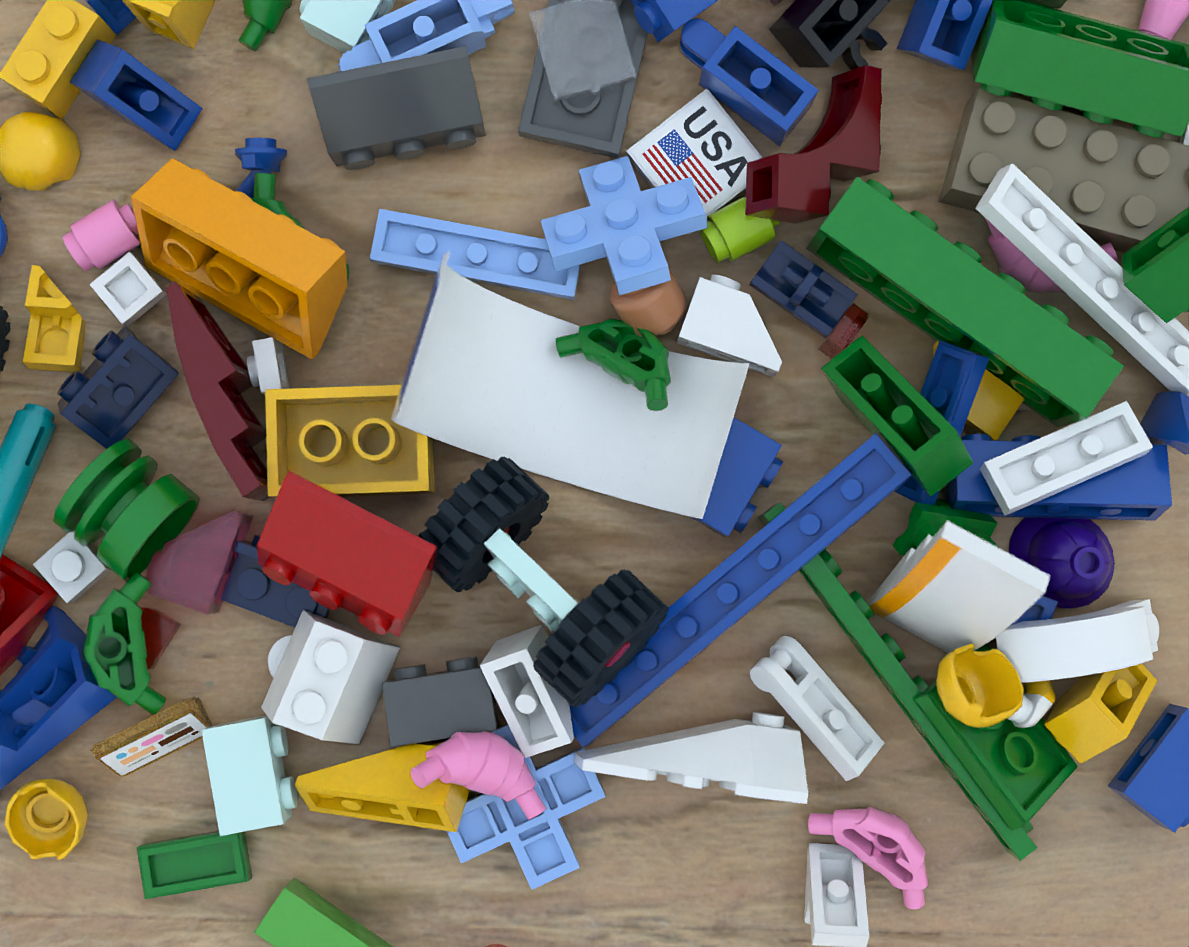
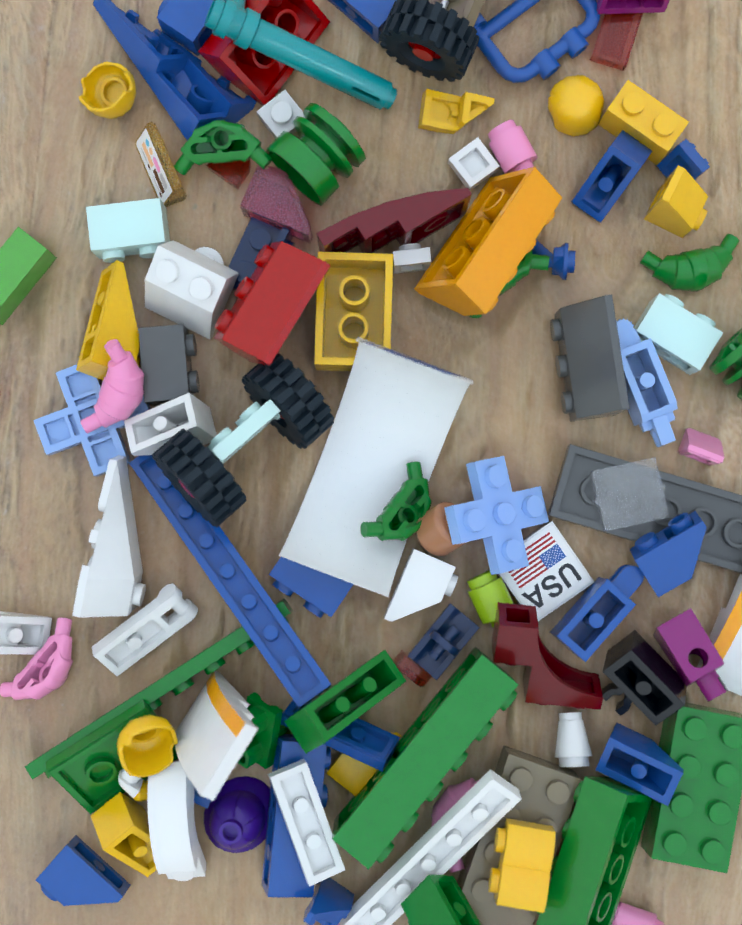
camera: 90 degrees right, 0 degrees up
(115, 387) = (404, 151): dark blue bracket -> none
(193, 863) = (71, 188): green tile -> none
(475, 253) = (484, 404): light blue plate -> none
(927, 106) = (572, 741): none -> white cone
(1100, 156) = (523, 865): none -> yellow brick

